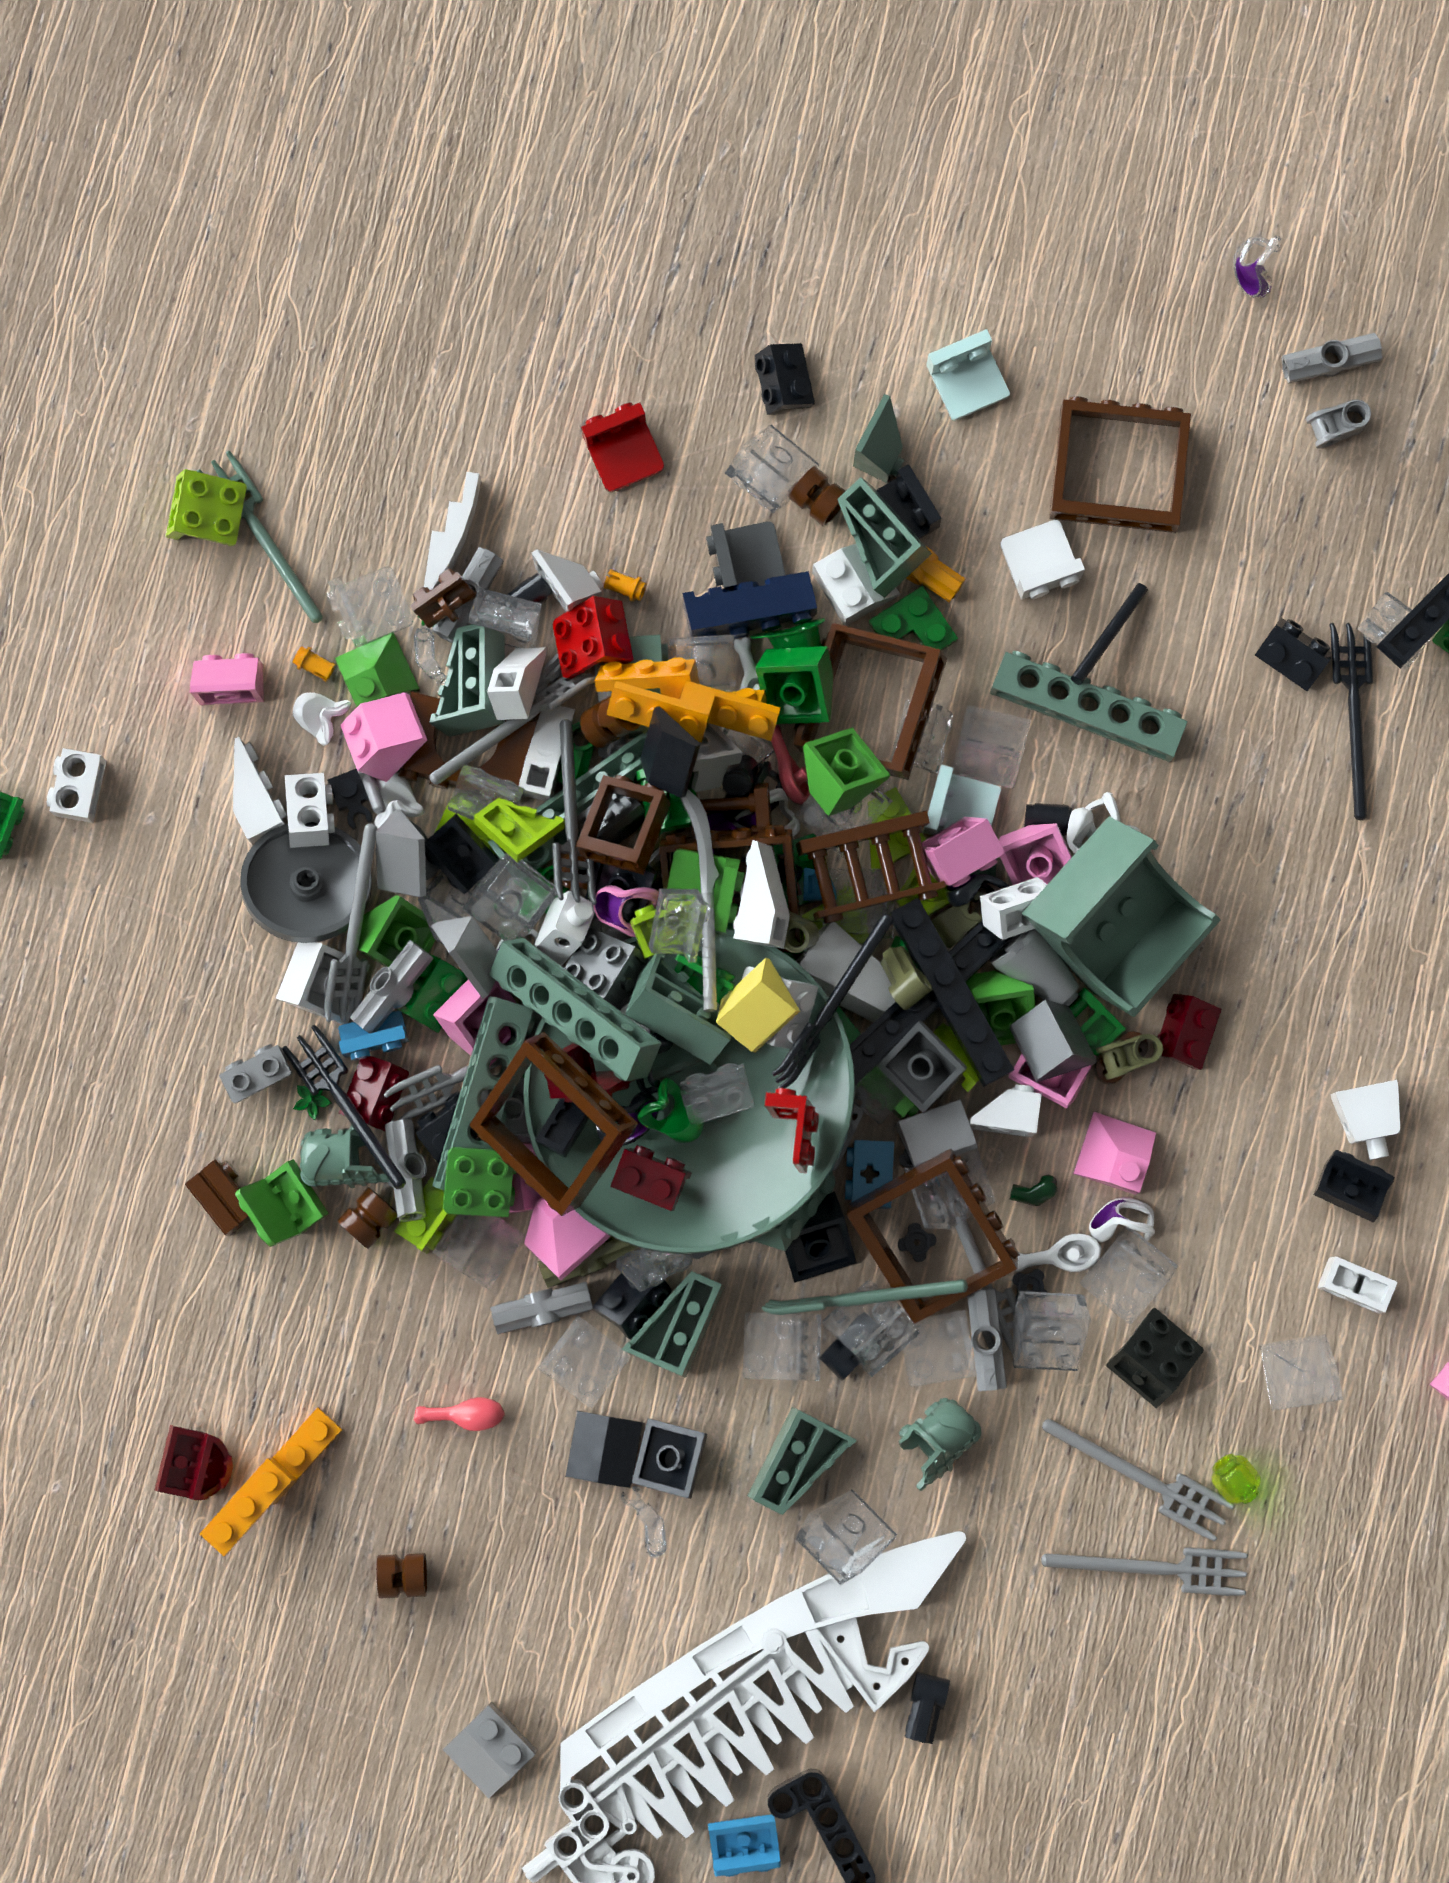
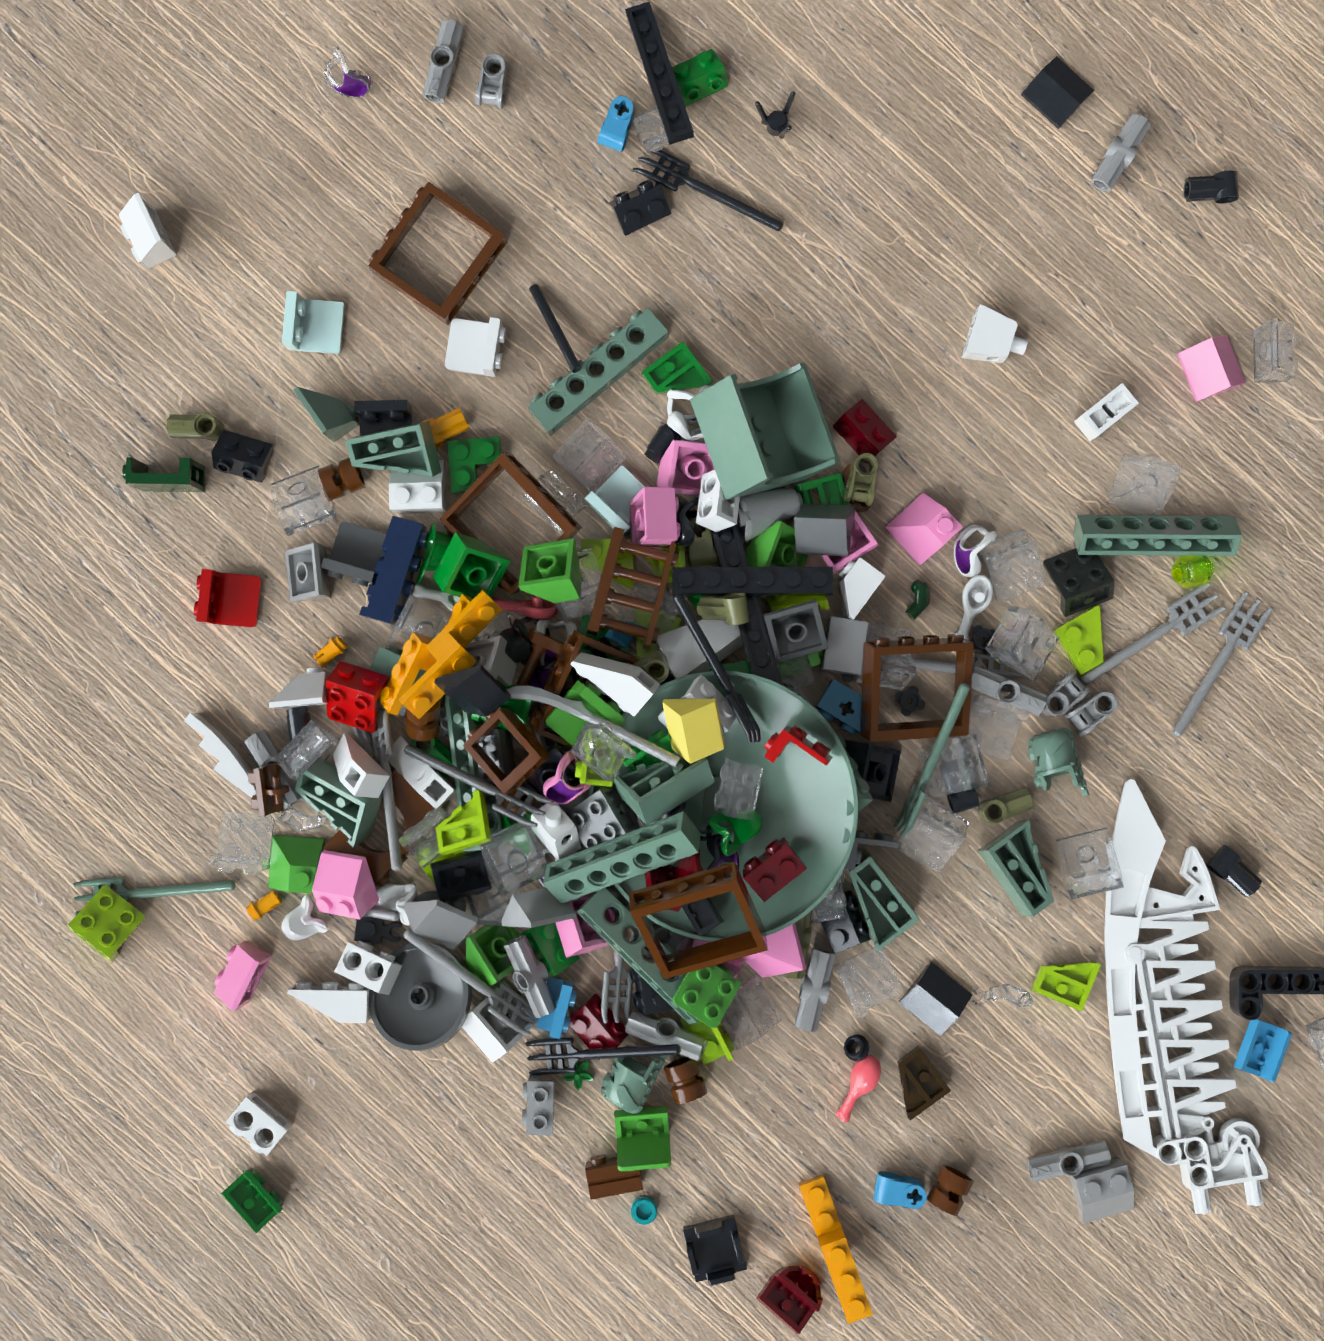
camera: 60 degrees left, 5 degrees up
(199, 1352) = (715, 1250): none -> black panel
(201, 1252) = (644, 1210): none -> teal tile
(370, 1513) = (895, 1190): none -> dark azure piece
(502, 1480) = (919, 1082): none -> dark brown wing
(503, 1388) = (851, 1044): none -> black plate
(519, 1710) = (1085, 1157): none -> light grey piece
(669, 1458) = (967, 956): black slope -> none
(691, 515) = (305, 575): none -> light grey slope
(700, 1585) = (1067, 982): none -> lime wing
(713, 1264) = (861, 837): none -> dark grey bracket
(727, 337) = (190, 477): none -> dark green panel
(787, 311) = (194, 426): none -> olive piece
(860, 1413) = (1007, 805): none -> olive piece
(967, 148) = (146, 232): none -> white slope
(1013, 1449) = (1087, 714): none -> light grey piece
(1019, 1410) = (1067, 692): none -> light grey piece
(1090, 1399) = (1082, 640): none -> lime wing
(1136, 790) = (676, 371): none -> green wing
(1252, 1415) = (1156, 535): none -> sand green brick
(1353, 1185) = (1034, 376): black bracket -> none
(1365, 580) = (616, 127): none -> dark azure piece

